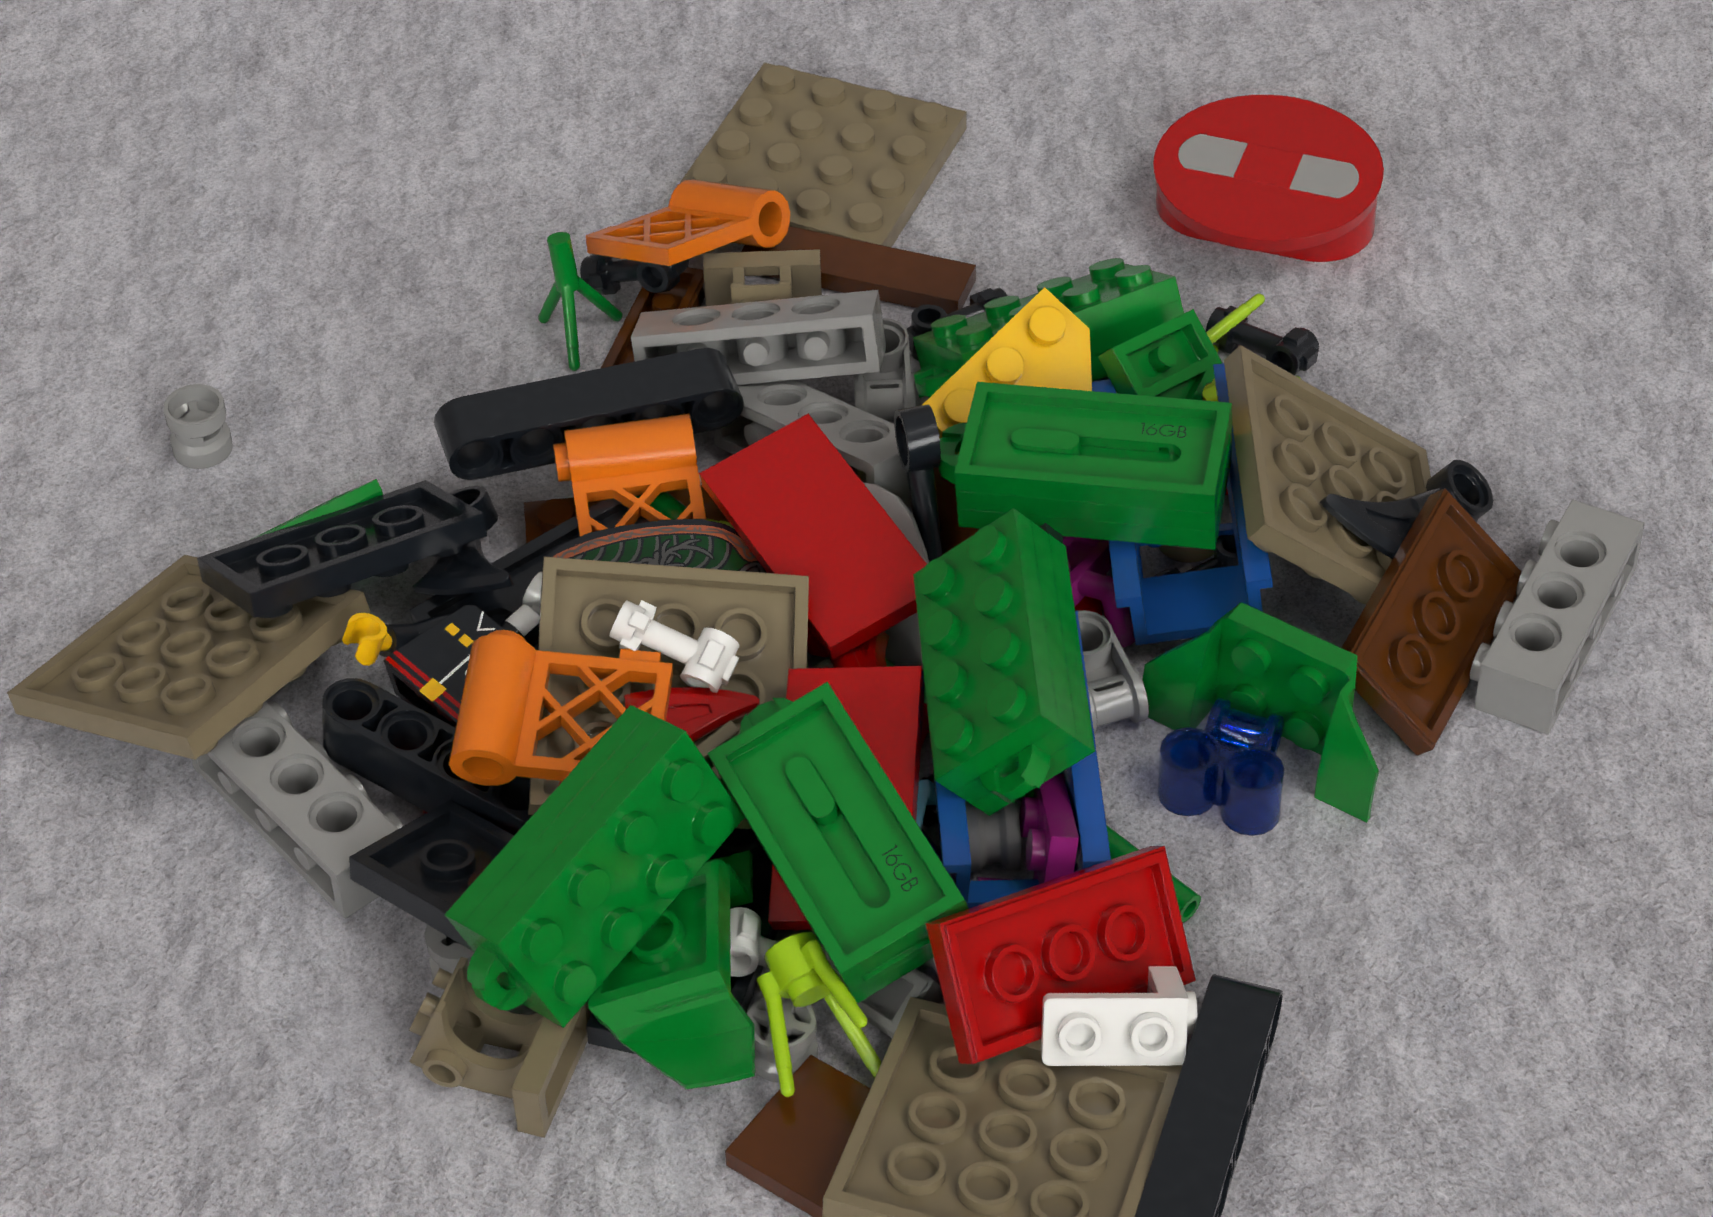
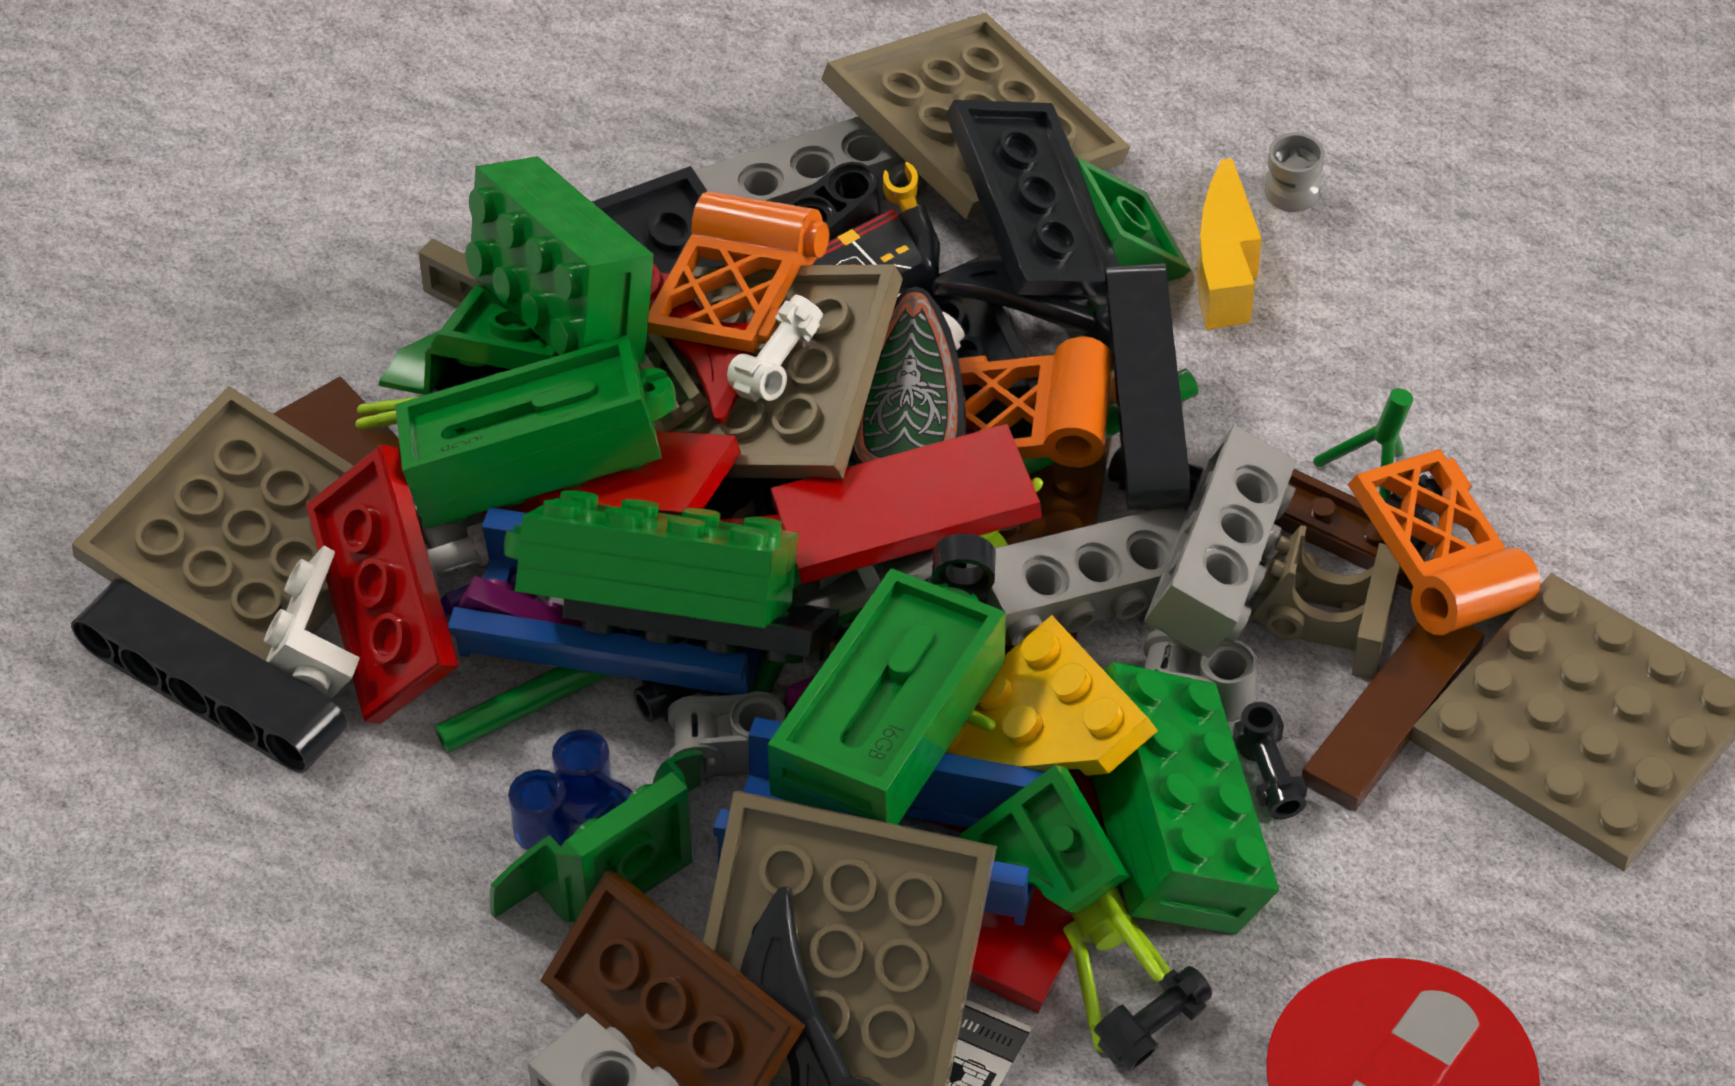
camera: 105 degrees right, 5 degrees up
(317, 457) = (1227, 251): none -> yellow slope

